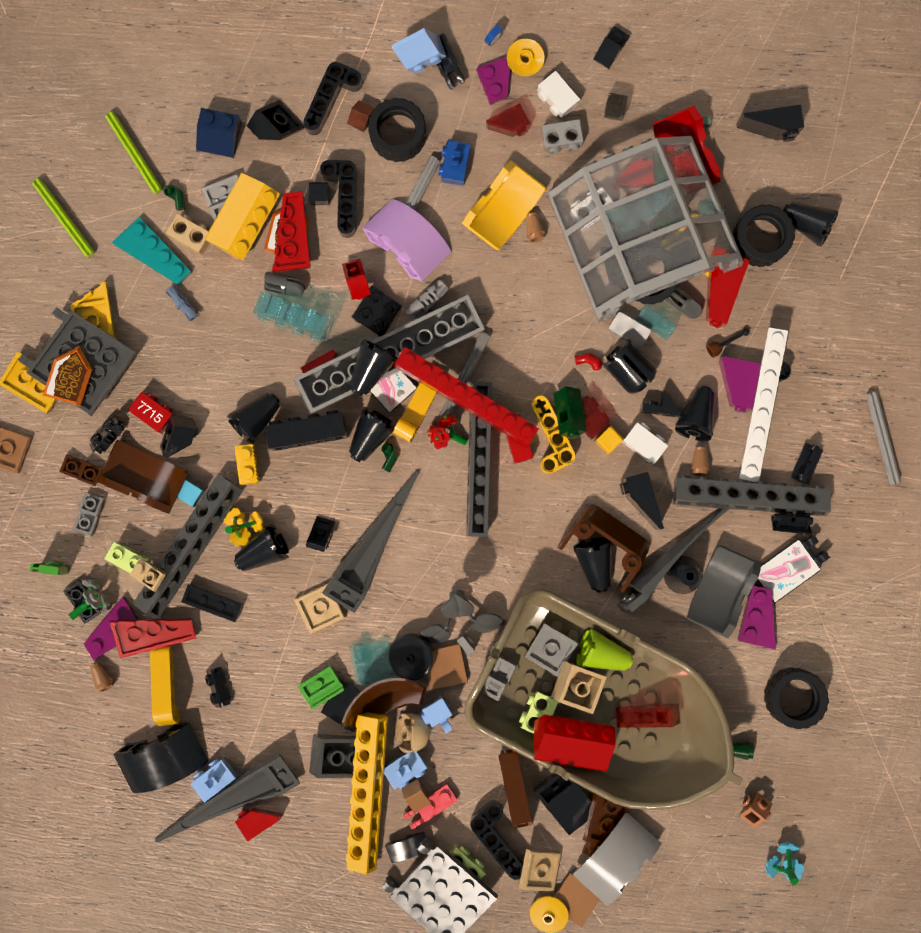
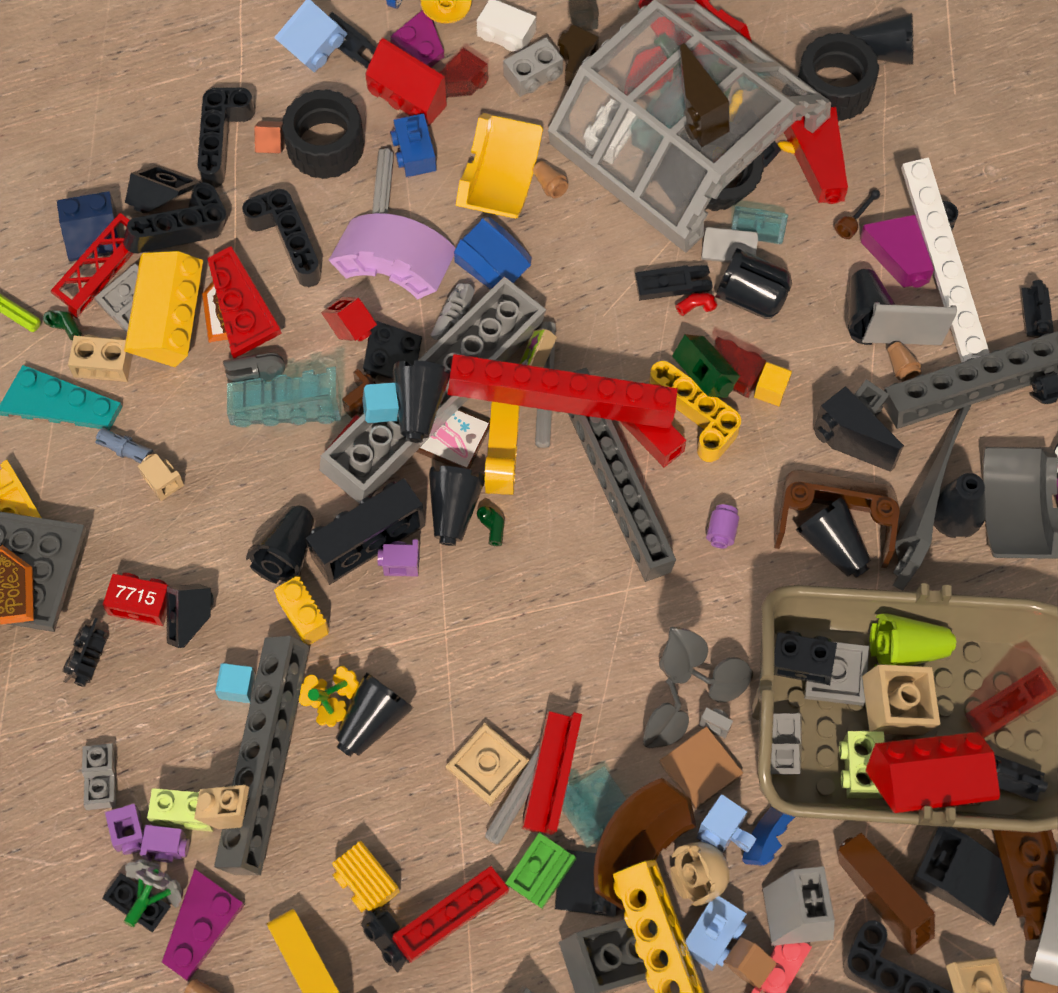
camera: 25 degrees left, 20 degrees down
(53, 568) = (73, 867): bright green plate -> none
(81, 470) = (64, 720): reddish brown slope -> none
(85, 556) = (121, 820): none -> medium lavender brick
(110, 574) = (164, 844): none -> medium lavender brick
(143, 475) = (158, 689): reddish brown panel -> none
(146, 635) = (248, 907): red wing -> none
(196, 334) = (160, 476): none -> tan brick
(212, 603) = (329, 821): black plate -> none
(215, 172) = (103, 274): none -> red fence
(218, 647) = (365, 878): none -> yellow brick
(258, 691) = (450, 914): none -> red plate
(270, 159) = (198, 222): none -> black beam
(319, 193) = (254, 245): black piece -> none
(320, 534) = (444, 662): black slope -> none
(321, 455) = (399, 558): none -> medium lavender brick
(340, 337) = (353, 401): none -> reddish brown bracket
(340, 628) = (512, 804): none -> light grey axle
(345, 359) = (380, 403): none -> medium azure piece
(353, 634) = (551, 773): none -> red fence
(356, 571) = (516, 690): dark grey plate -> none
(411, 656) = (646, 760): black wheel -> none
(440, 436) = (553, 457): red plant -> none
(459, 730) = (766, 843): none -> blue slope
(459, 777) = (799, 907): none -> light grey slope
(465, 355) = (538, 348): none -> tan slope
(468, 115) = (406, 82): none -> red slope
(472, 269) = (491, 254): none -> blue slope
(530, 522) = (723, 526): none -> medium lavender brick
(533, 636) = (804, 657): none -> black brick
(578, 338) = (672, 281): none -> black hinge
(598, 135) = (574, 48): none -> dark brown arch
(627, 760) = (1020, 779): none -> black hinge
(643, 243) = (704, 101): none -> dark brown slope
(645, 443) = (820, 368): white brick -> none
(661, 482) = (872, 397): none -> dark grey brick
(666, 407) = (824, 317): black slope -> none
(687, 305) = (782, 189): dark grey arm -> none
(715, 442) = (909, 324): none -> light grey piece

